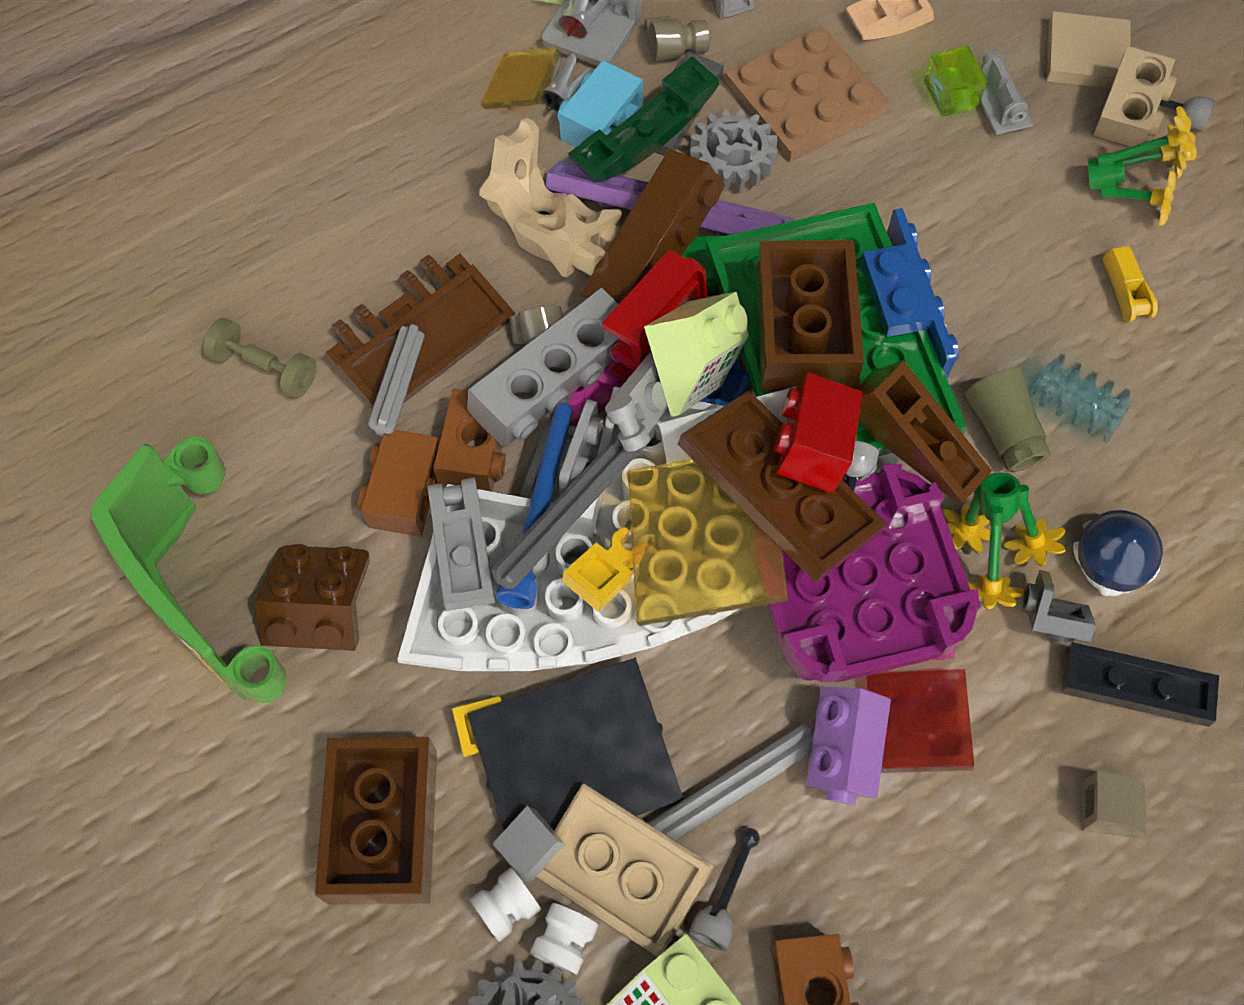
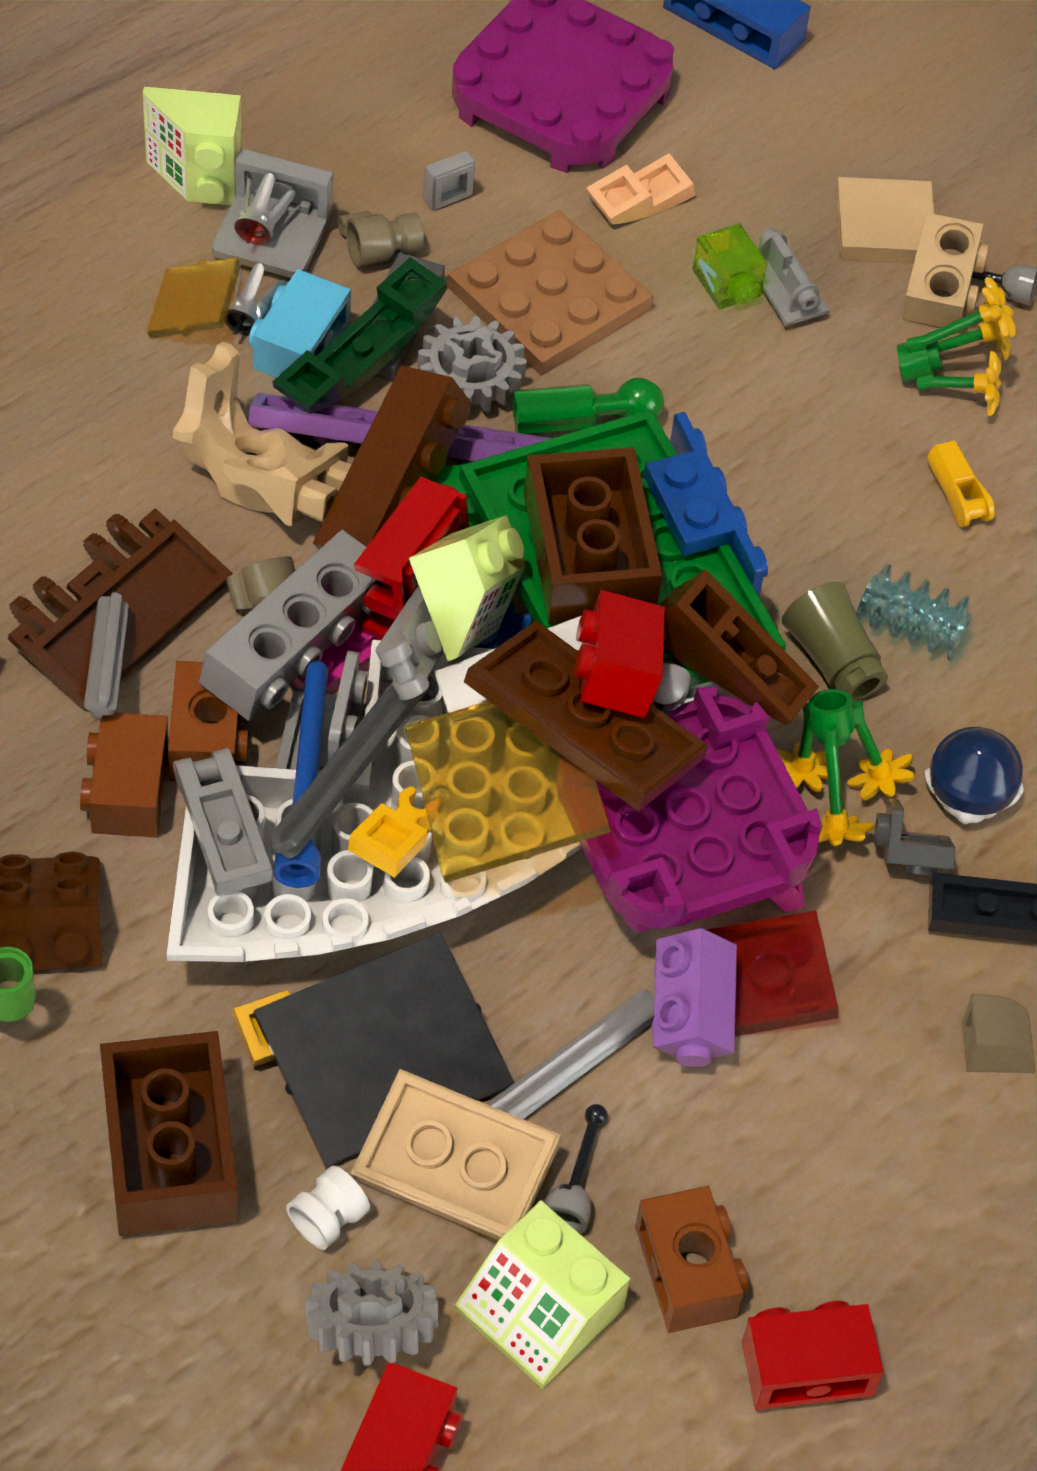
camera: 15 degrees left, 10 degrees down
(528, 844) = (346, 1138): light grey tile -> none
(564, 938) = (401, 1234): white wheel -> none
(817, 191) = (579, 405): none -> green piece

